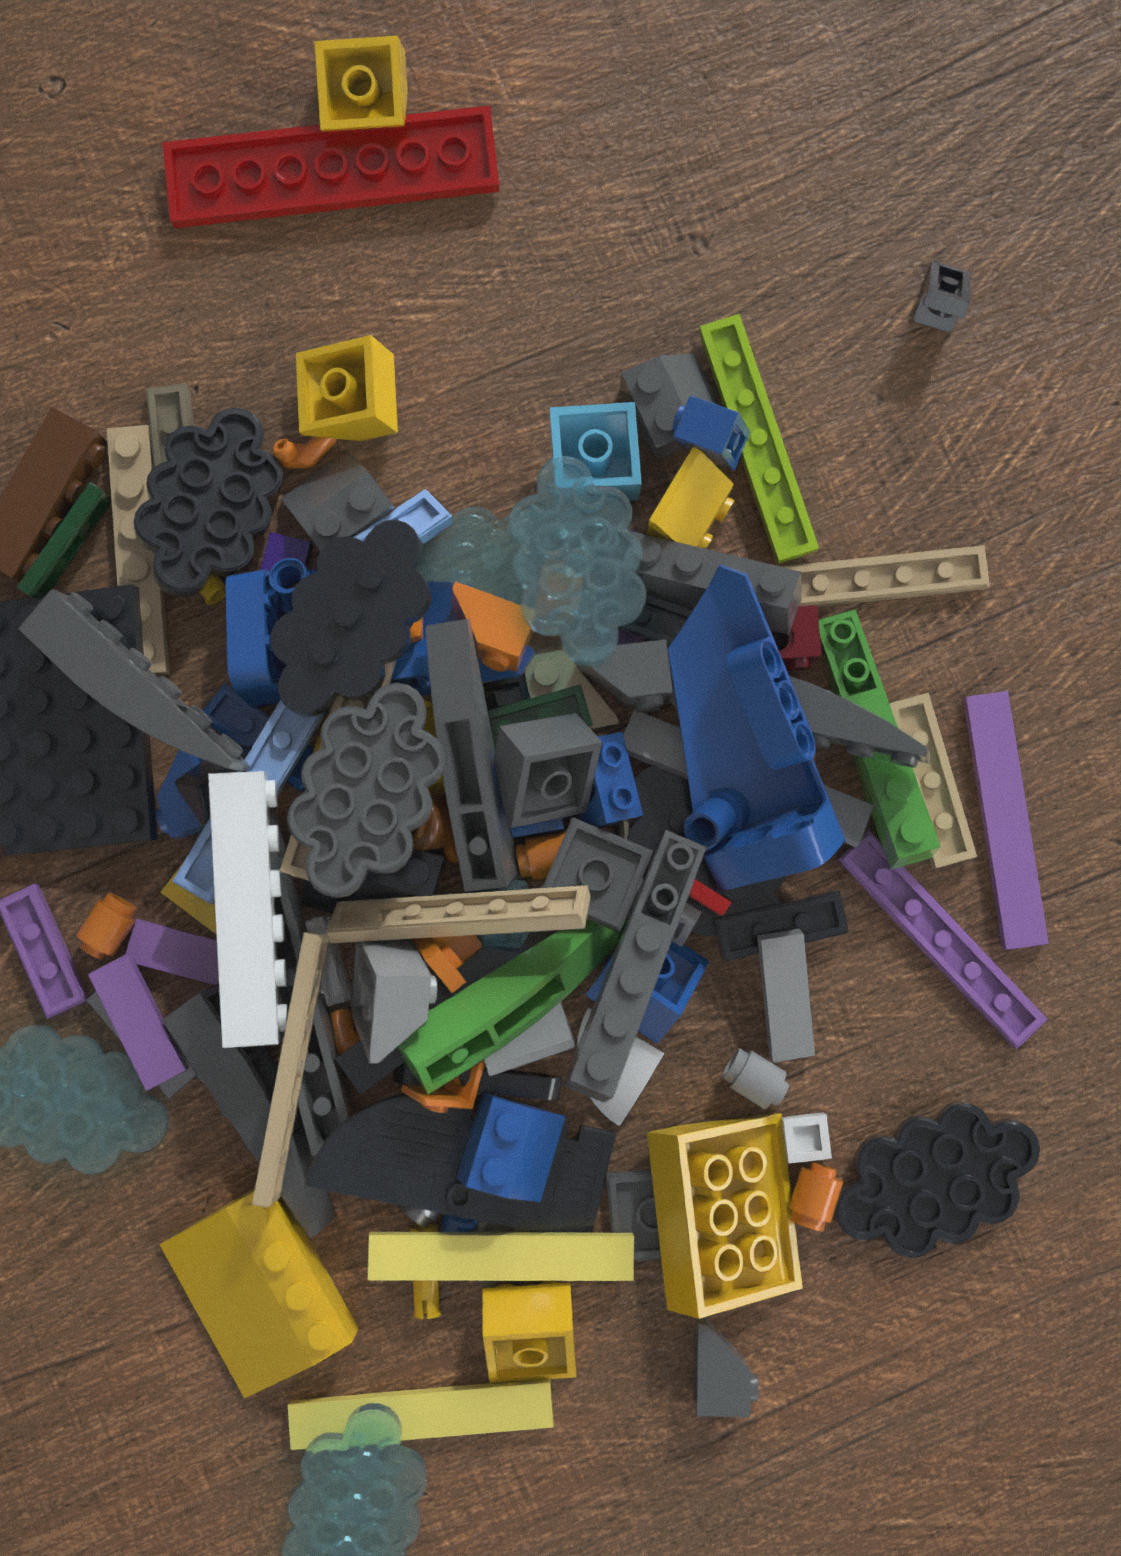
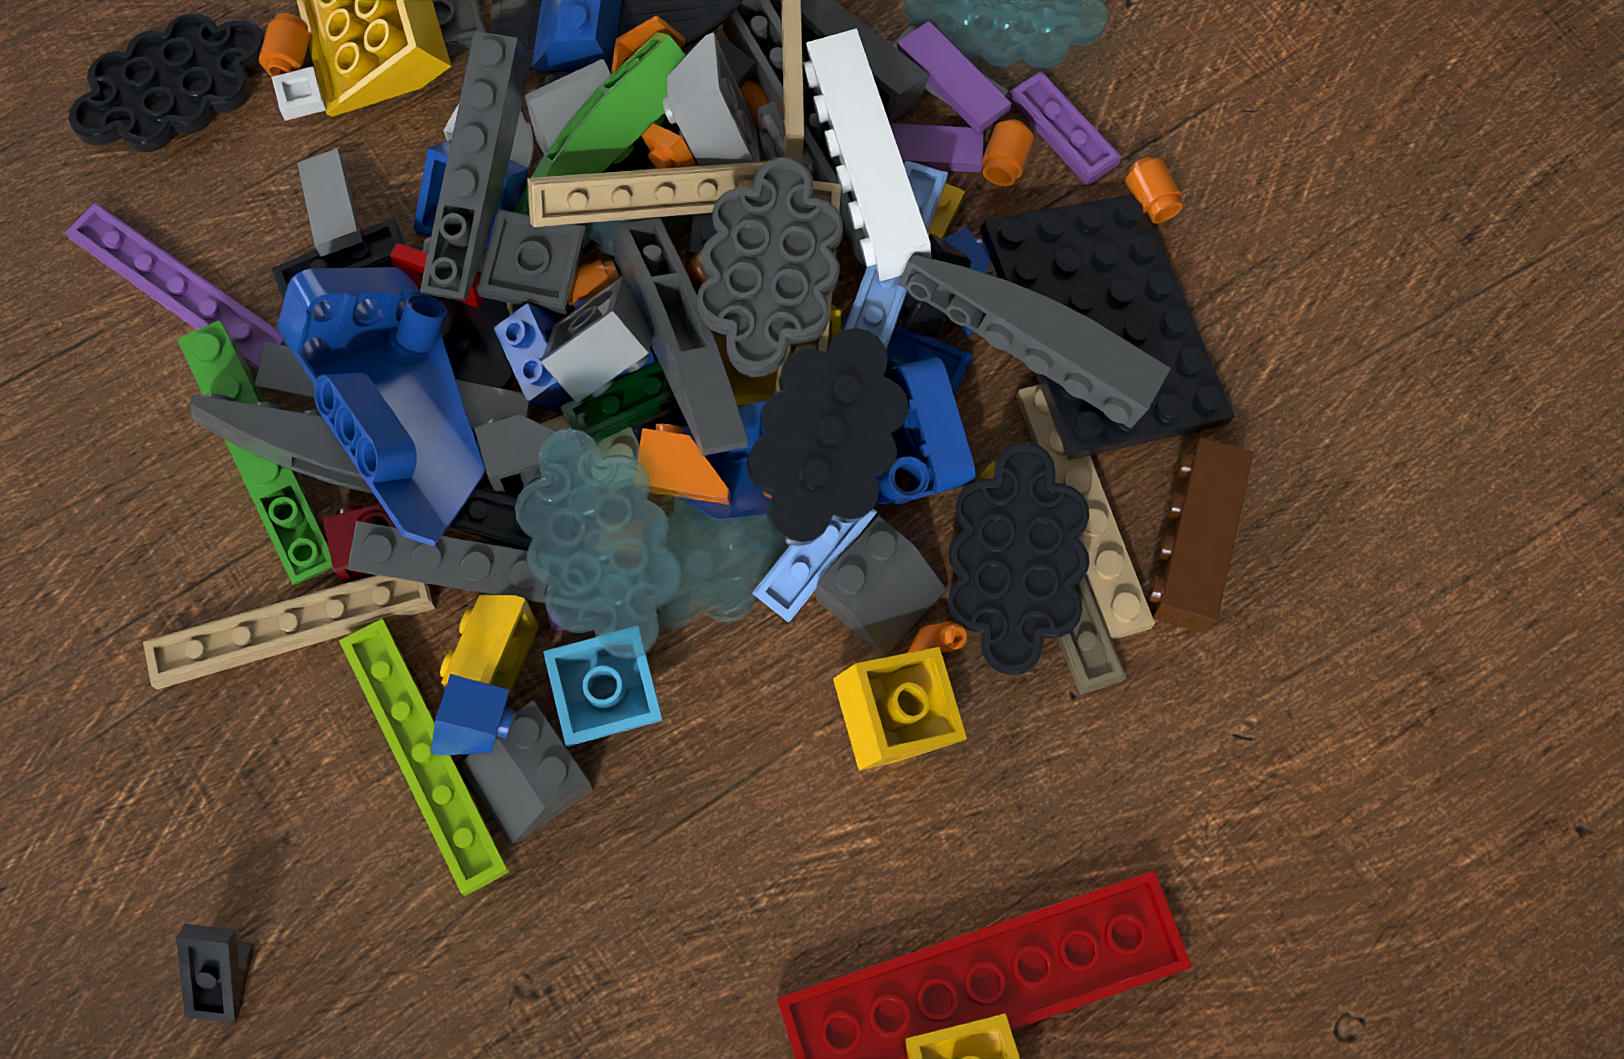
camera: 165 degrees right, 15 degrees down
(66, 542) = (1159, 493): dark green tile -> none
(283, 547) = (926, 526): dark purple tile -> none
(755, 1078) = (353, 131): light grey brick -> none
(936, 781) = (203, 452): tan plate -> none
(1005, 820) = (116, 413): medium lavender tile -> none

